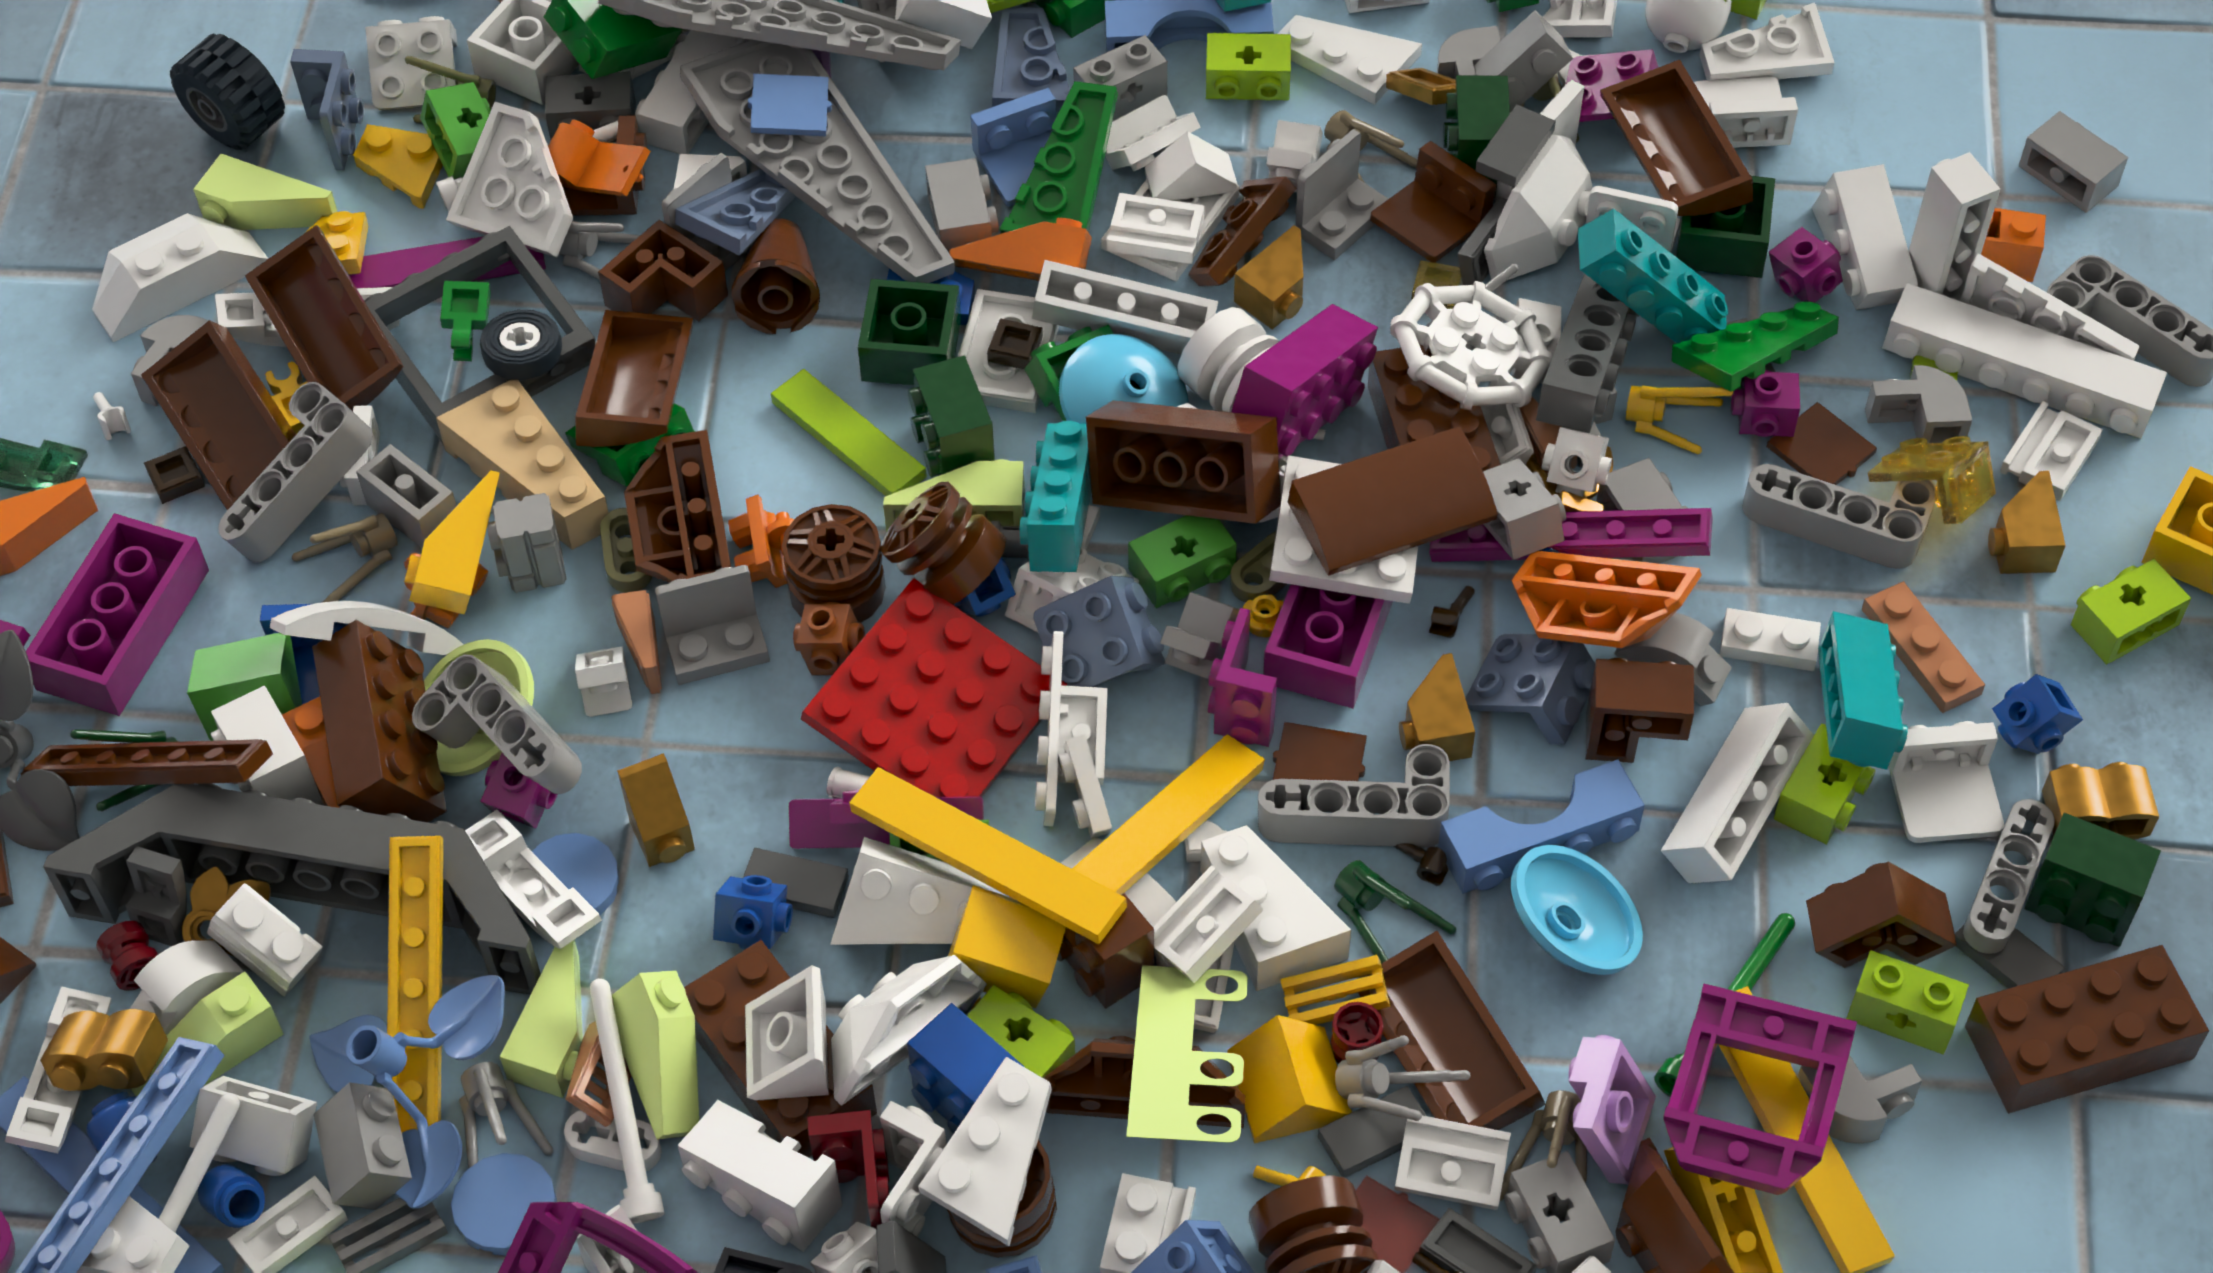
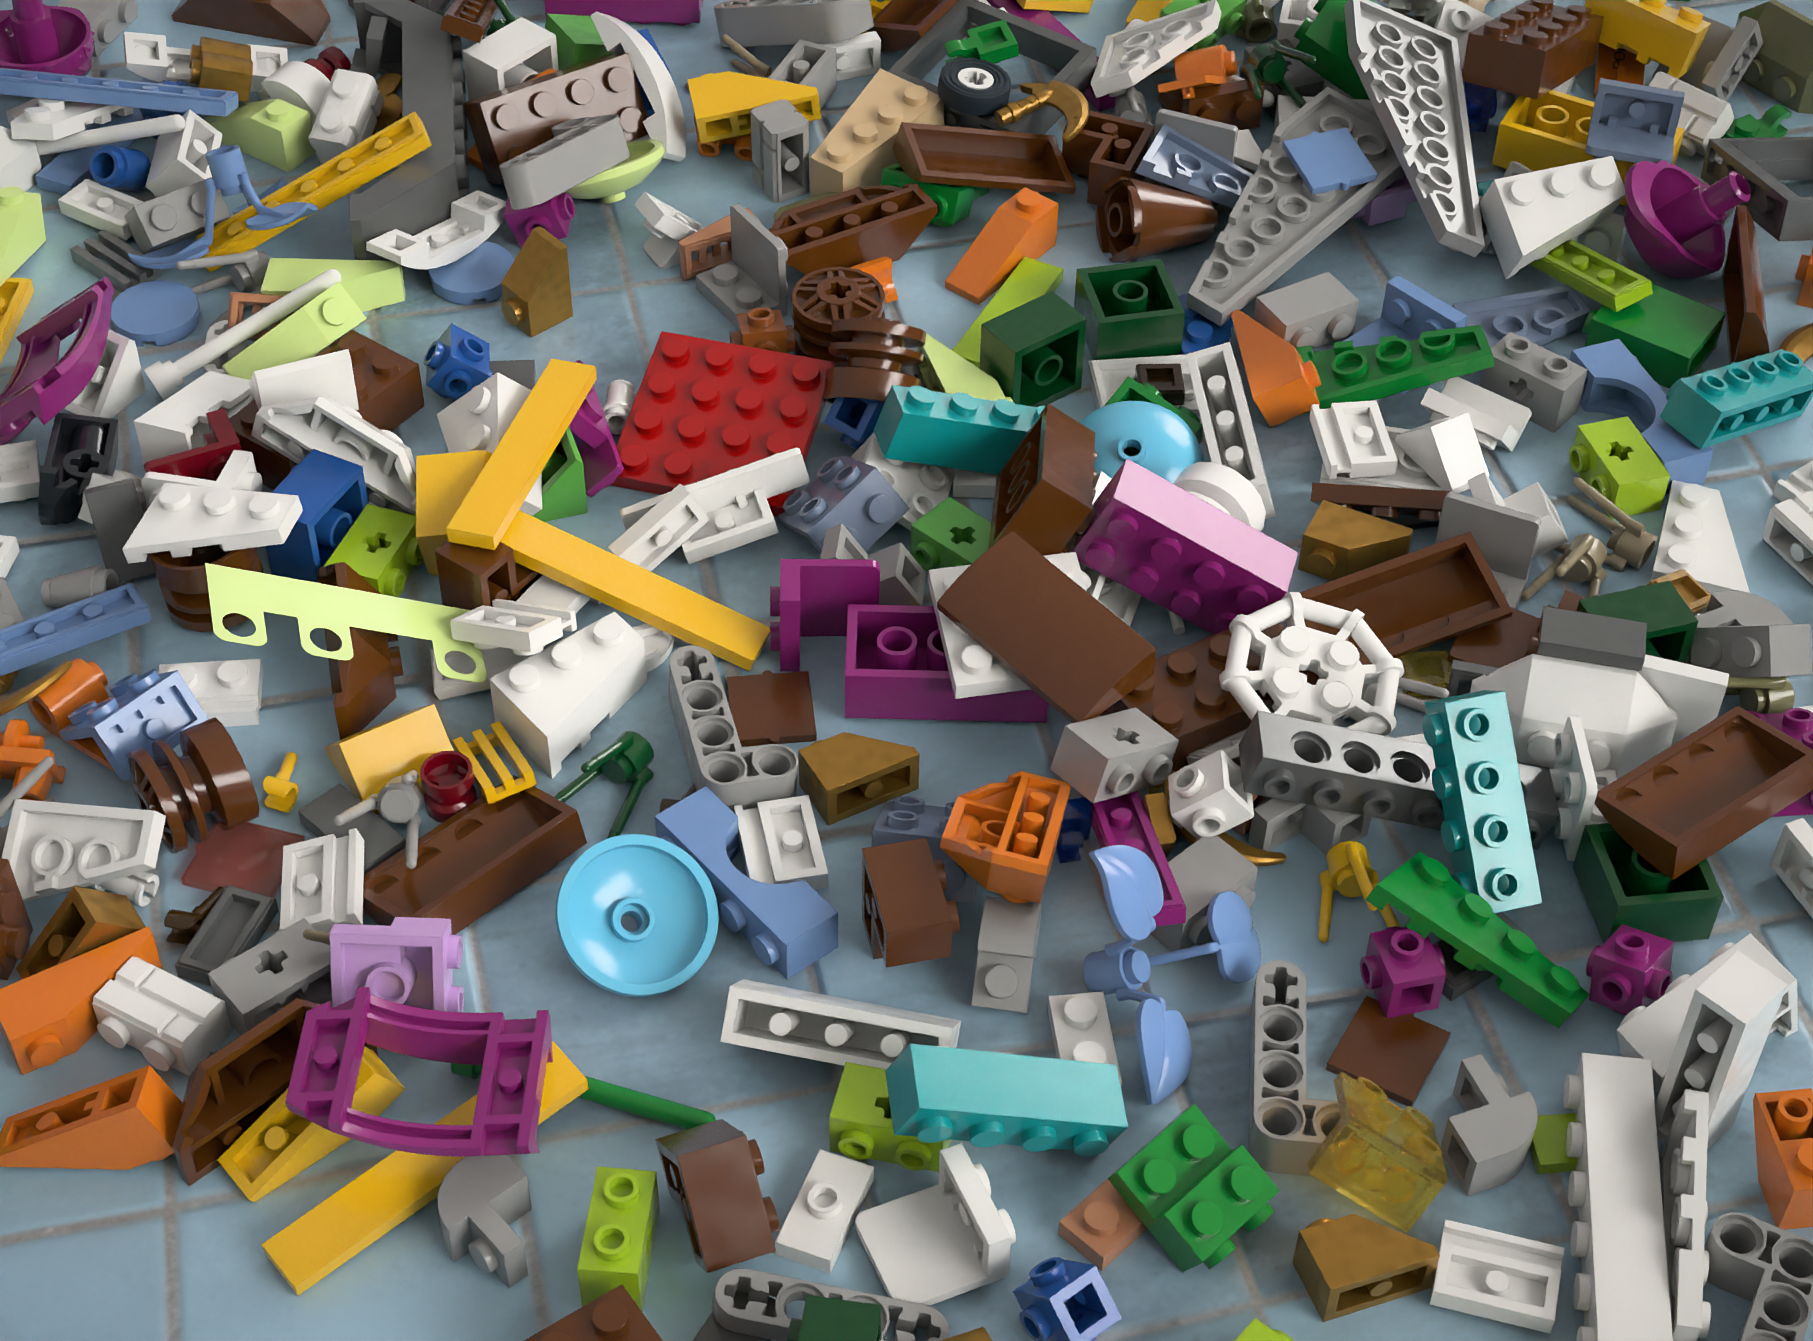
camera: 70 degrees right, 10 degrees down
(579, 276) = (1055, 94): none -> pearl gold piece
(610, 101) = (1270, 67): none -> dark green plant
(752, 404) = (1016, 230): none -> orange slope
(1334, 95) = (1629, 538): none -> dark tan plant
(1372, 255) = (1419, 596): none -> reddish brown slope
(1446, 620) = (982, 765): dark brown hand -> none
(1508, 786) = (782, 842): none -> white plate
(1719, 582) = (1133, 898): none -> medium blue plant
(1876, 843) = (824, 1211): none -> white plate
(1948, 602) = (1195, 1190): none -> green plate

